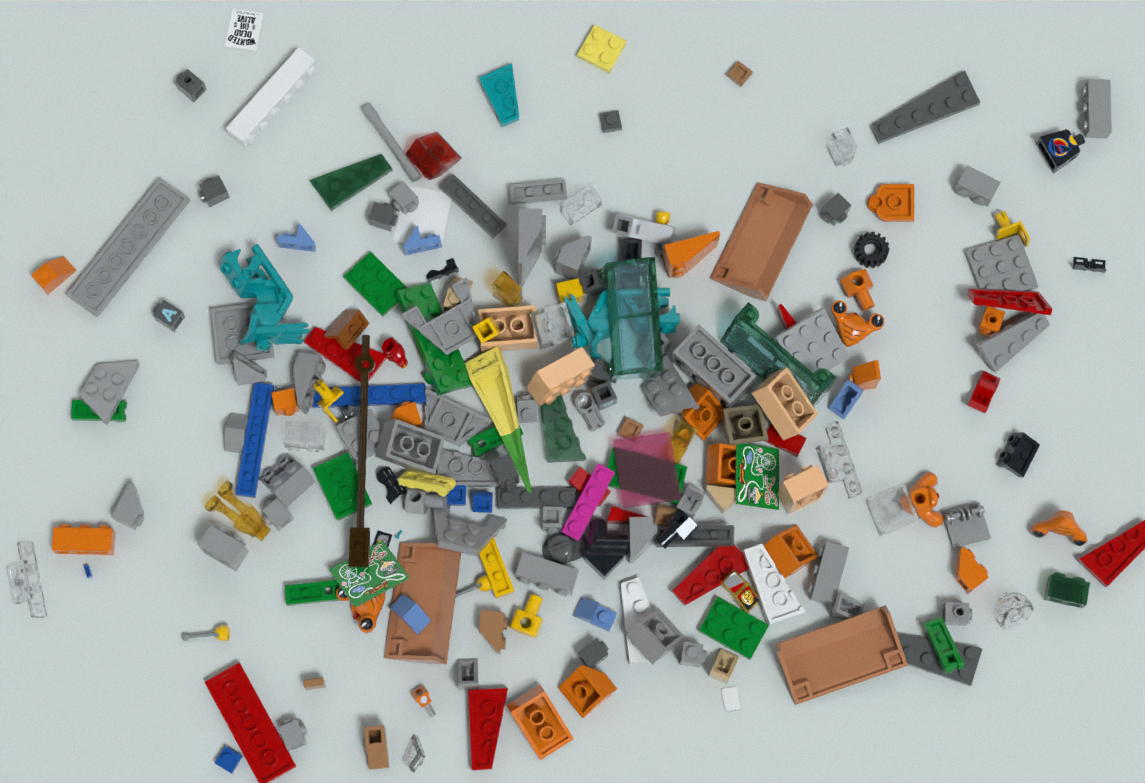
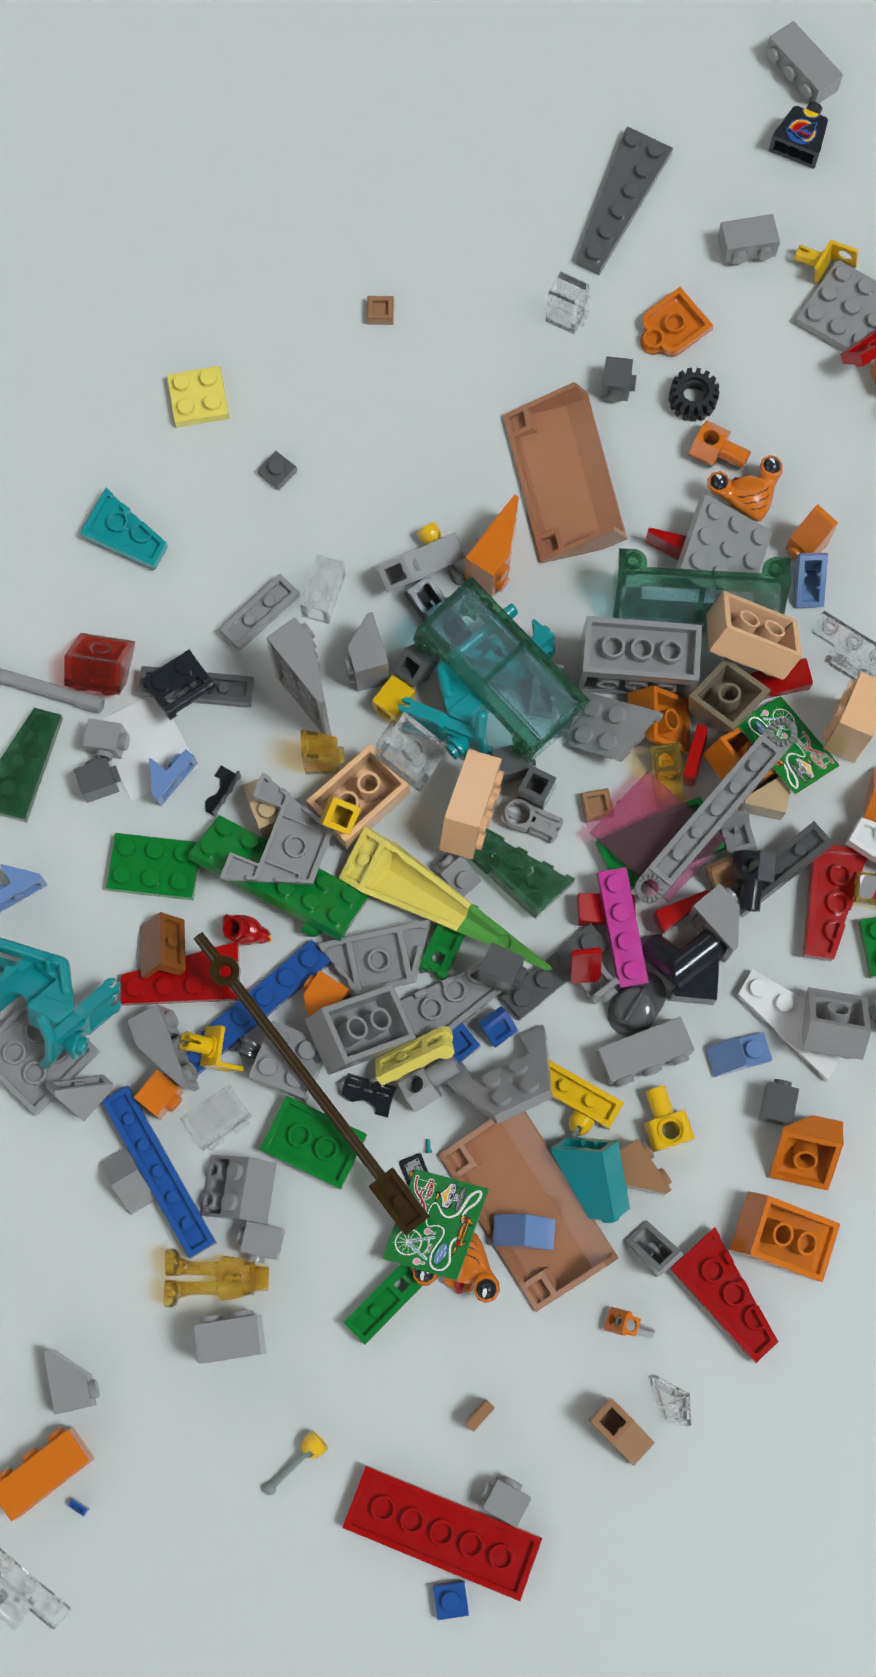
camera: 35 degrees left, 0 degrees up
(464, 193) = (174, 678): none -> black plate
(467, 613) = (595, 1175): none -> teal slope
(550, 504) = (585, 965): none -> red slope
(685, 478) = (716, 810): none -> light grey plate
(703, 443) = (695, 755): none -> red tile

